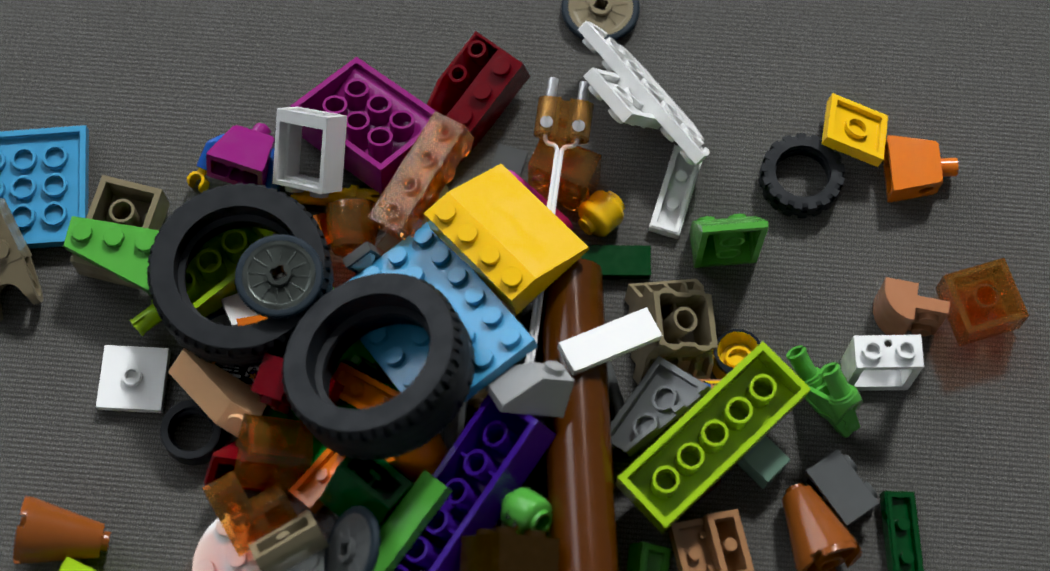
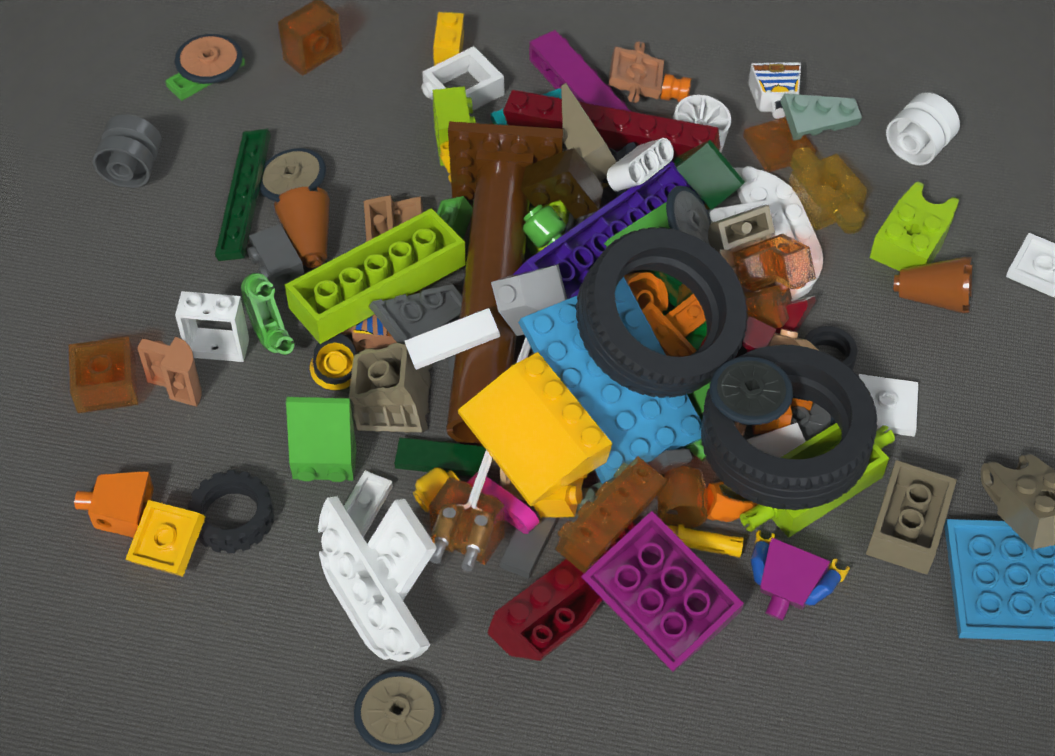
camera: 175 degrees left, 15 degrees down
(113, 247) = (909, 479): bright green wing -> none
(288, 150) = (713, 540): white window -> none

